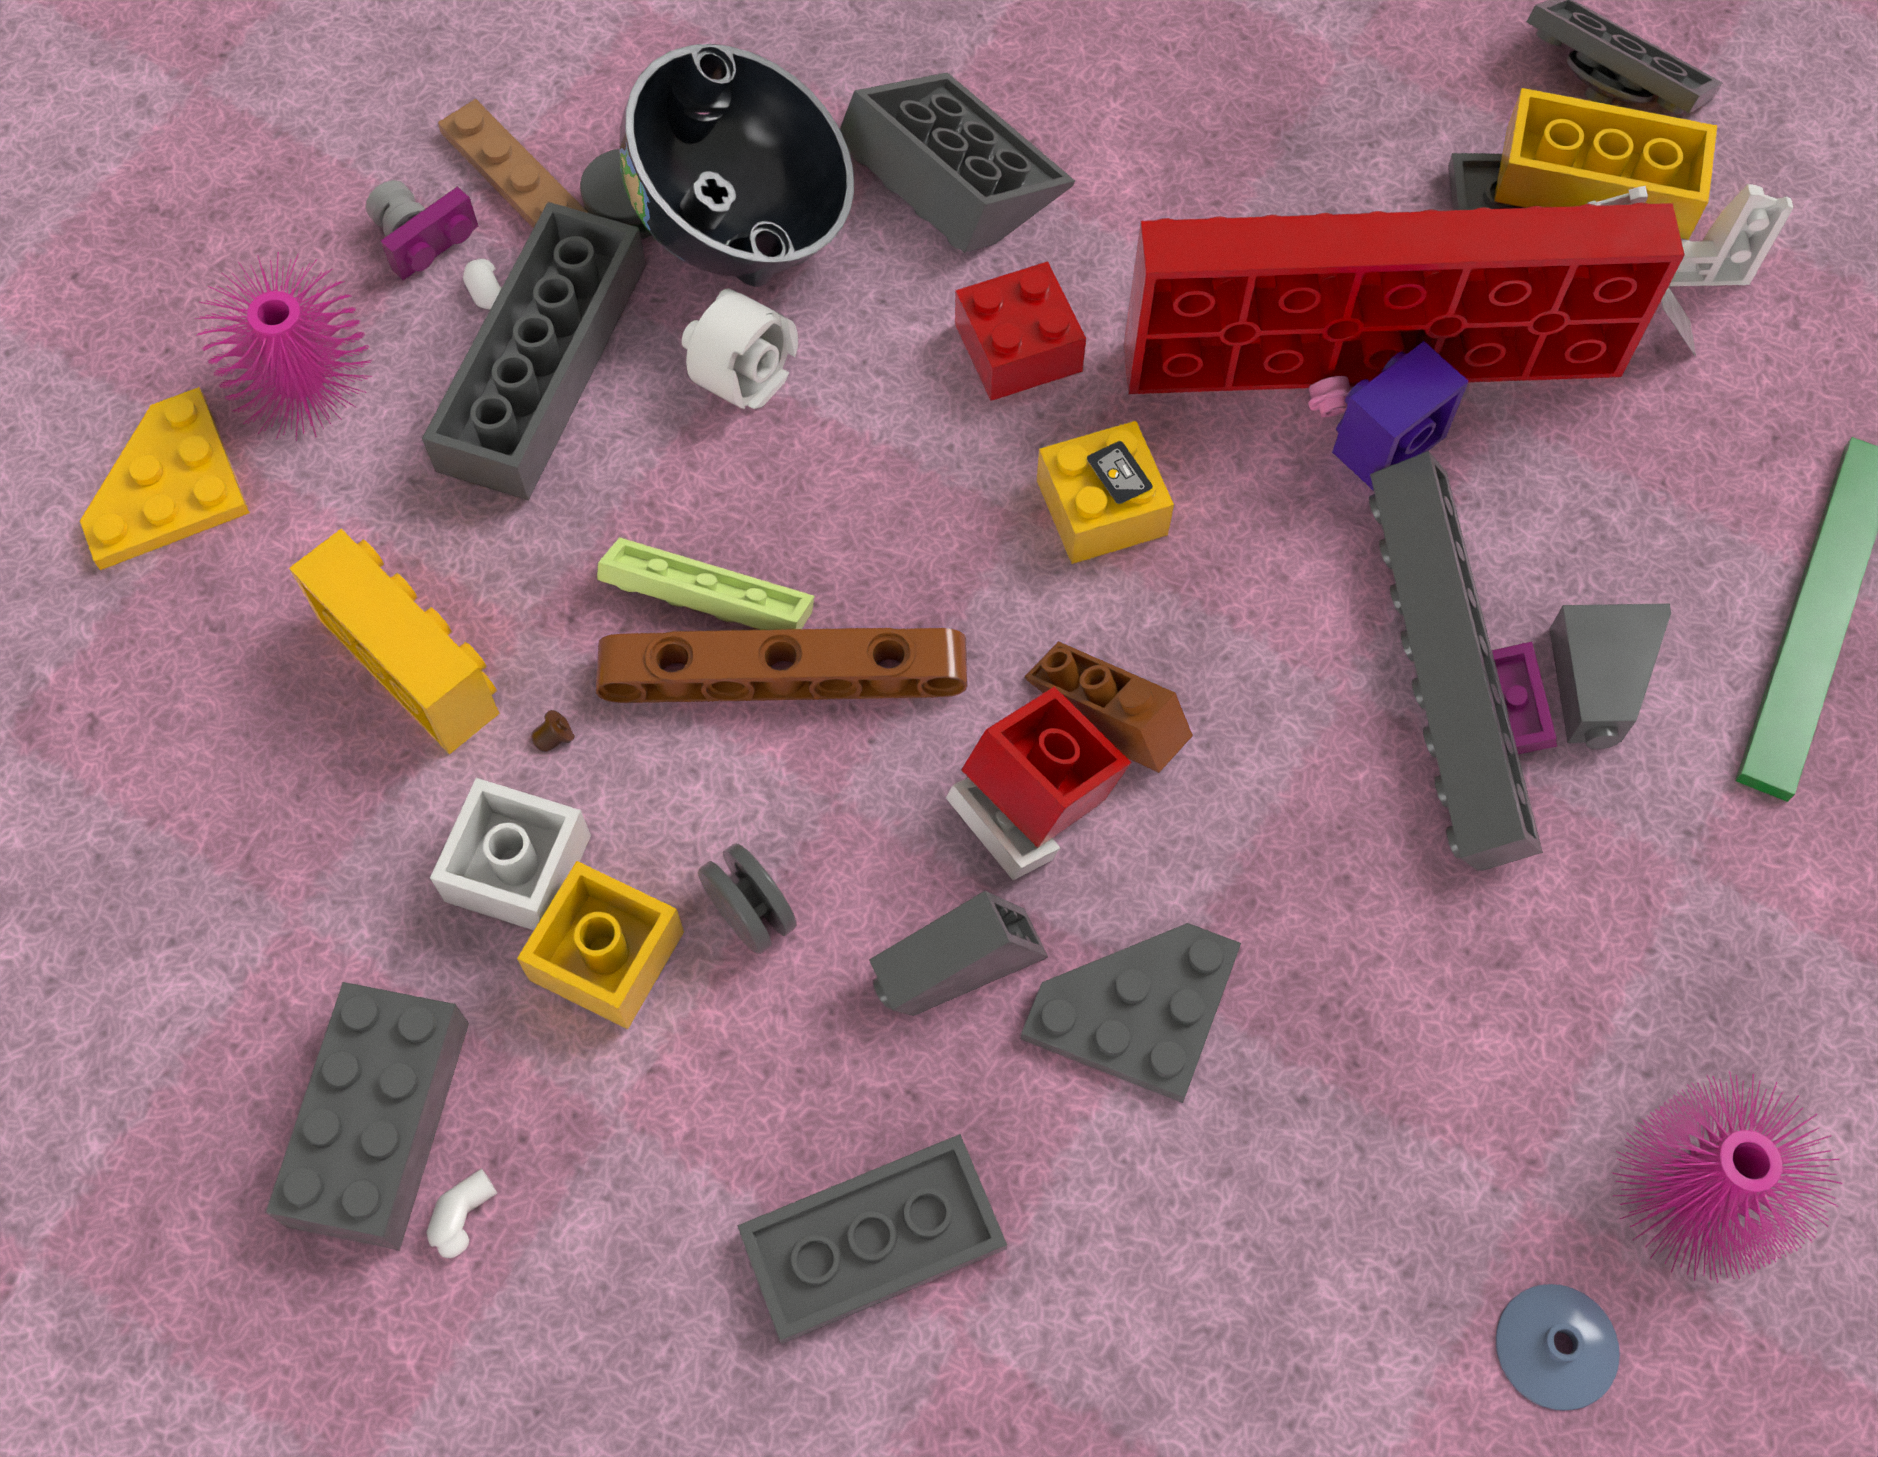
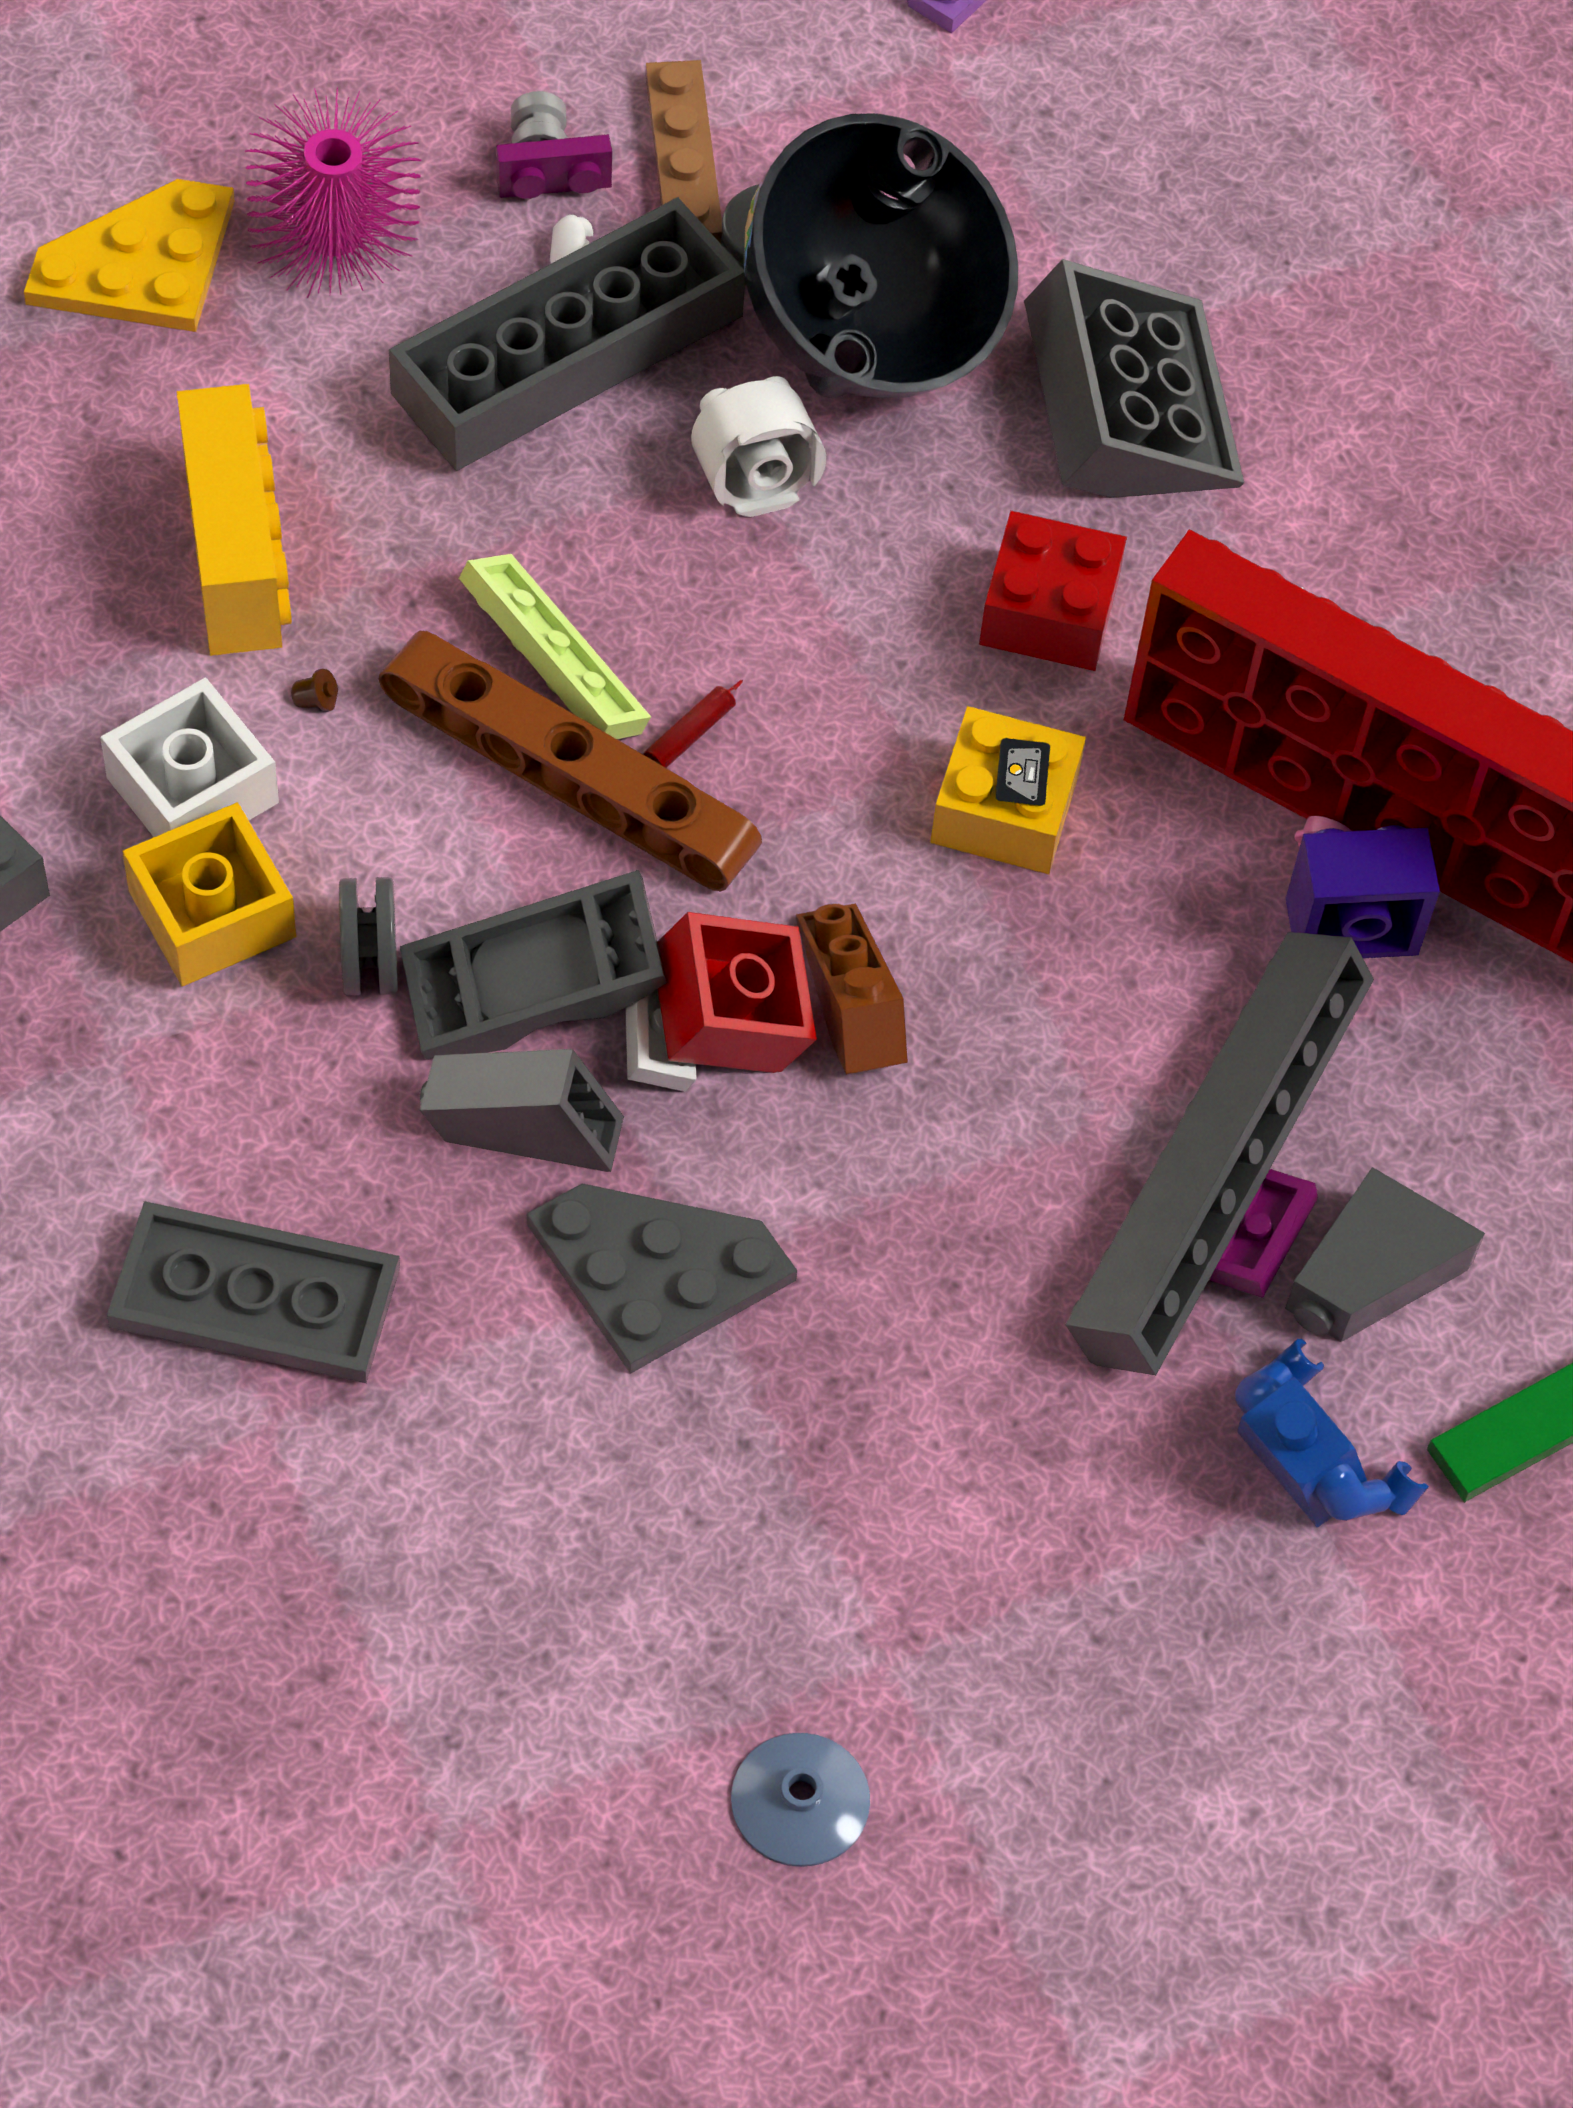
camera: 30 degrees right, 5 degrees down
(845, 583) = (692, 725): none -> red piece
(885, 841) = (534, 968): none -> dark grey slope
(1678, 833) = (1309, 1449): none -> blue torso
(1724, 1178) = (1064, 1744): dark pink piece -> none

